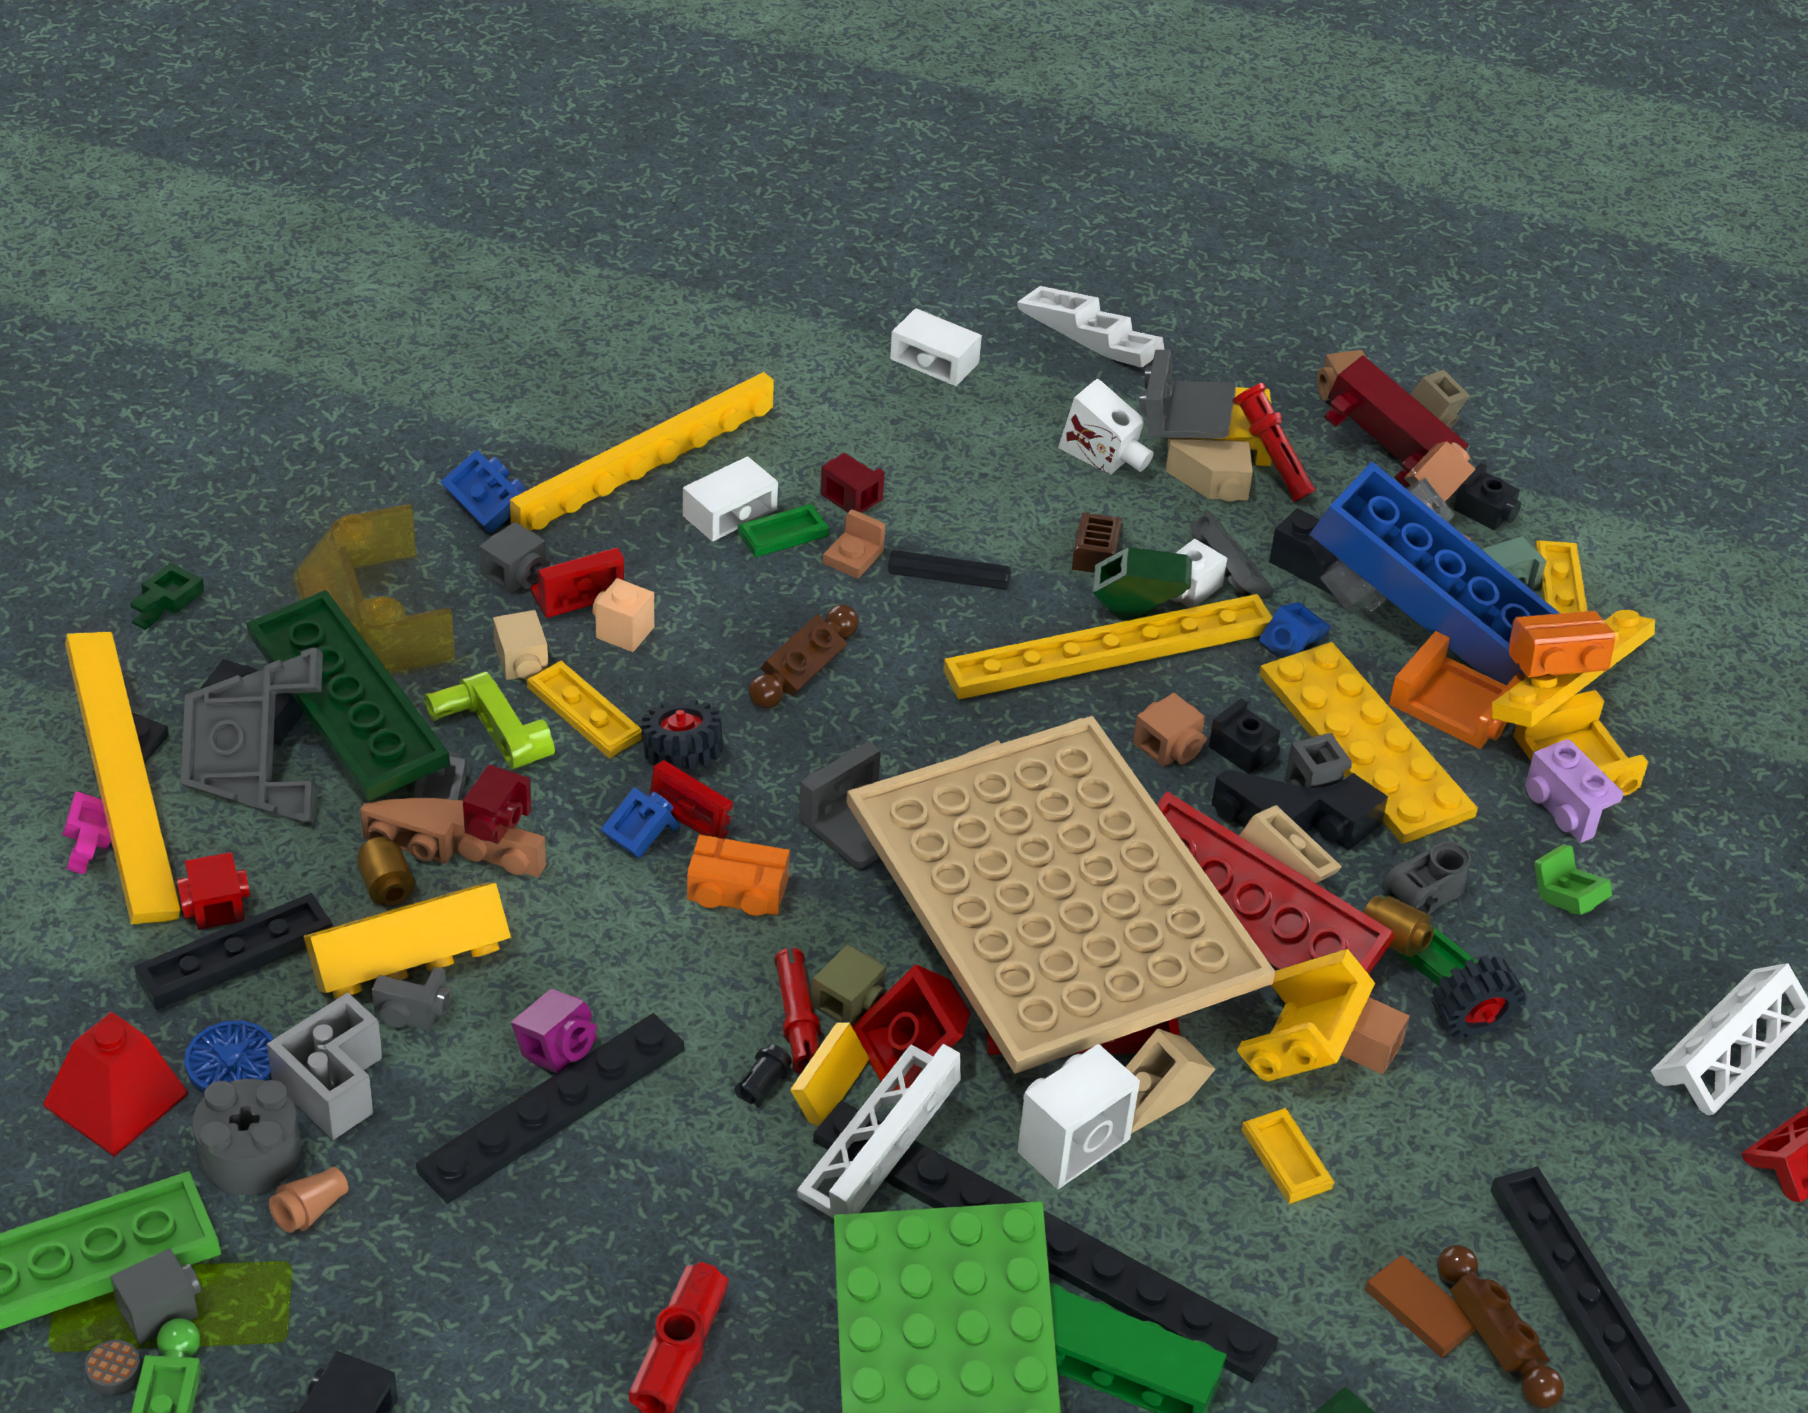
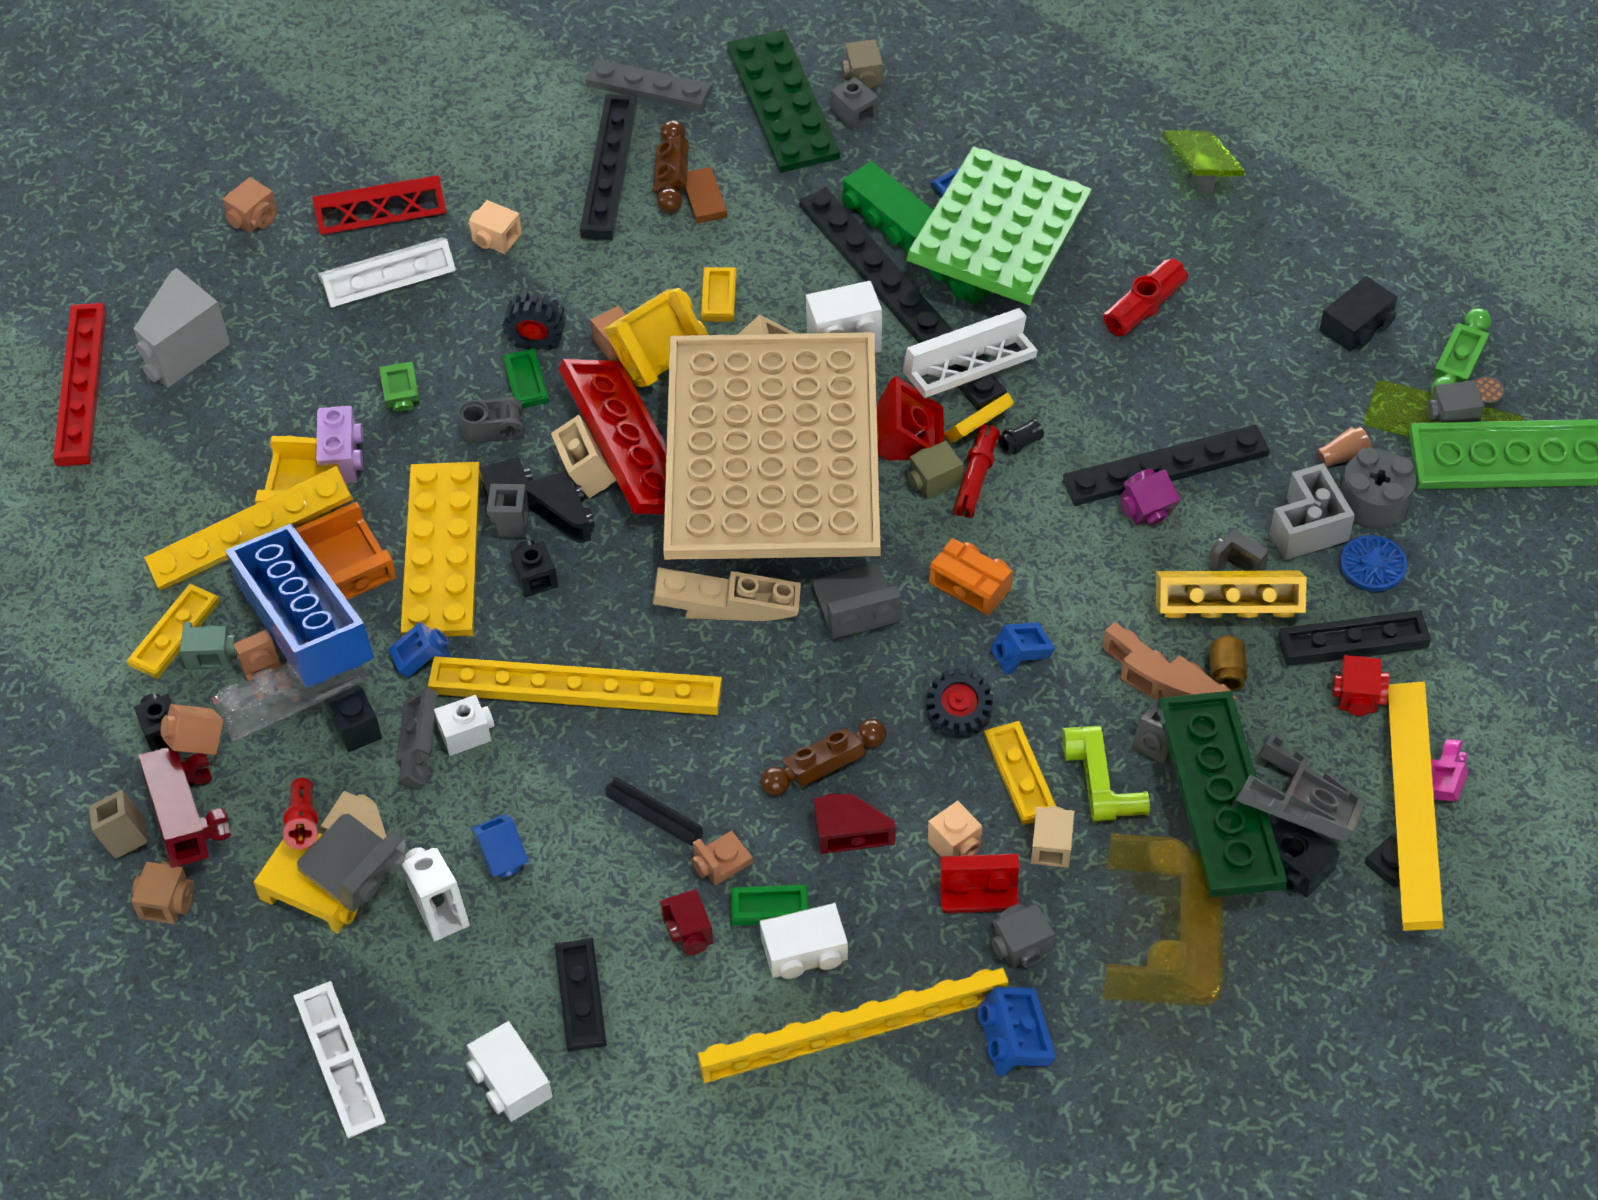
camera: 150 degrees left, 10 degrees up
(113, 1085) = (1457, 564): red slope -> none
(167, 589) = (1338, 1007): dark green plate -> none
(496, 803) = (1137, 644): dark red brick -> none
(691, 796) = (979, 645): red tile -> none
(739, 599) = (850, 824): none -> dark red slope
(917, 423) = (580, 994): none -> black tile
(1072, 482) = (500, 846): none -> blue brick
(1095, 541) = (512, 778): reddish brown slope -> none
(1140, 580) = (518, 709): dark green slope -> none
(1170, 731) = (584, 589): nougat brick -> none
(1409, 924) = (546, 383): pearl gold brick -> none
(1561, 643) = (267, 502): orange brick -> none
(1652, 1134) = (495, 227): none -> light nougat brick

